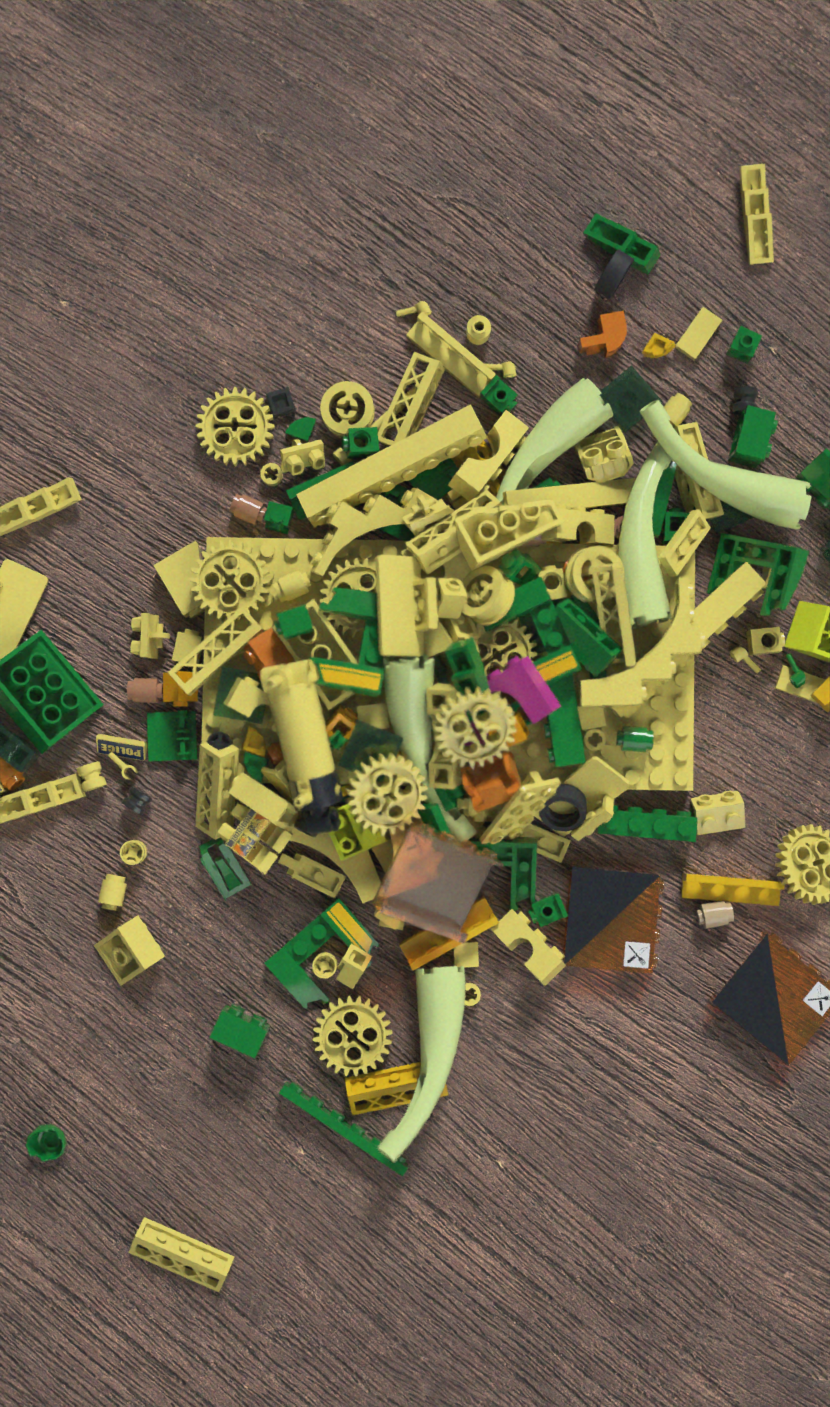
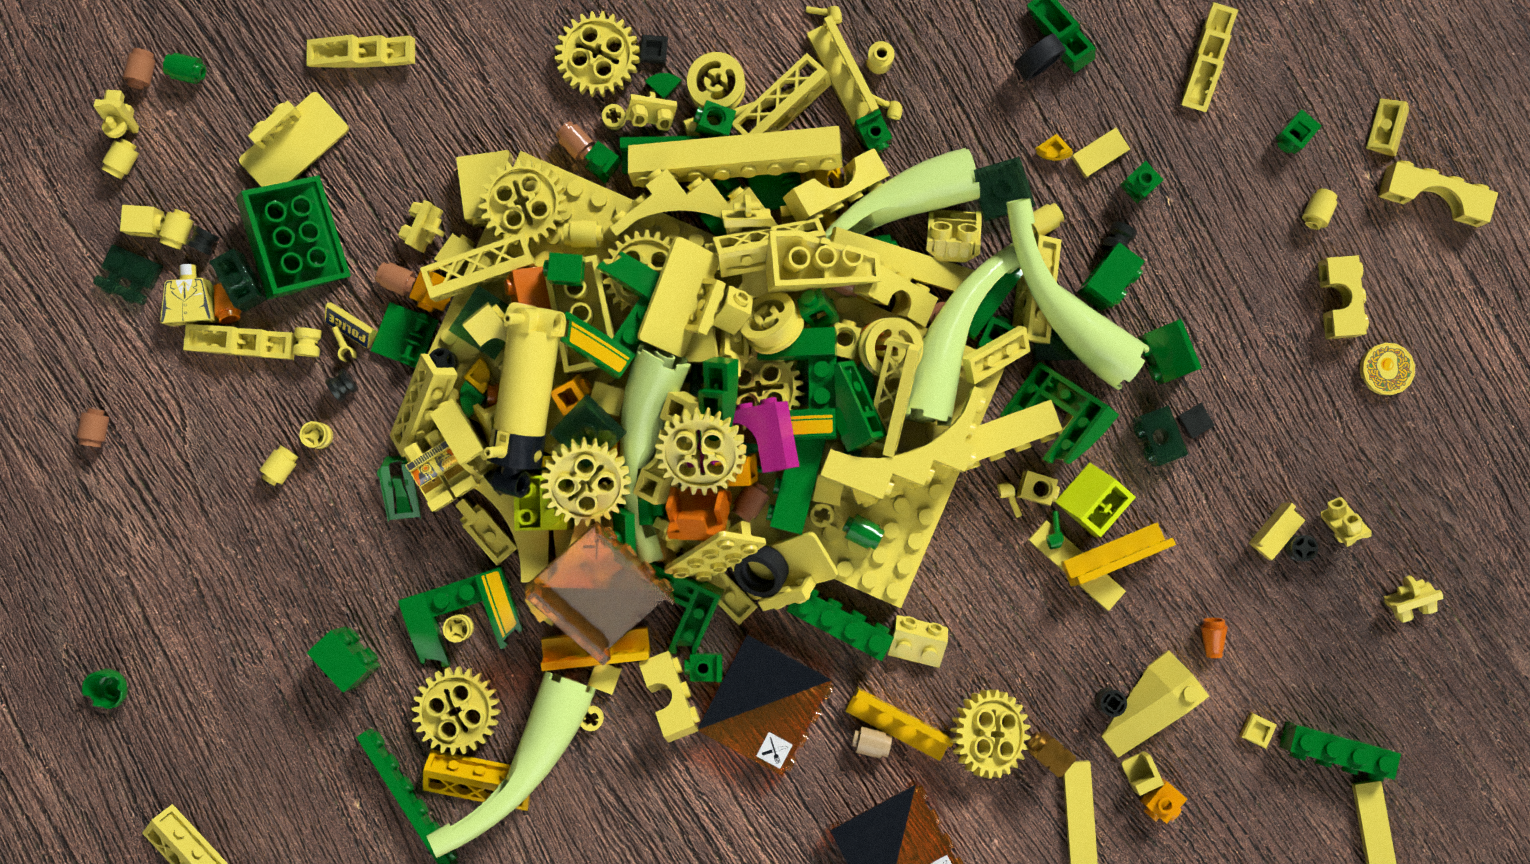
camera: 25 degrees right, 0 degrees up
(129, 950) = (271, 531): light yellow slope -> none
(337, 741) = (558, 407): green hand -> none
(353, 966) = (485, 640): light yellow brick -> none
(530, 753) = (750, 501): none -> nougat brick
(611, 336) = (1011, 120): orange brick -> none

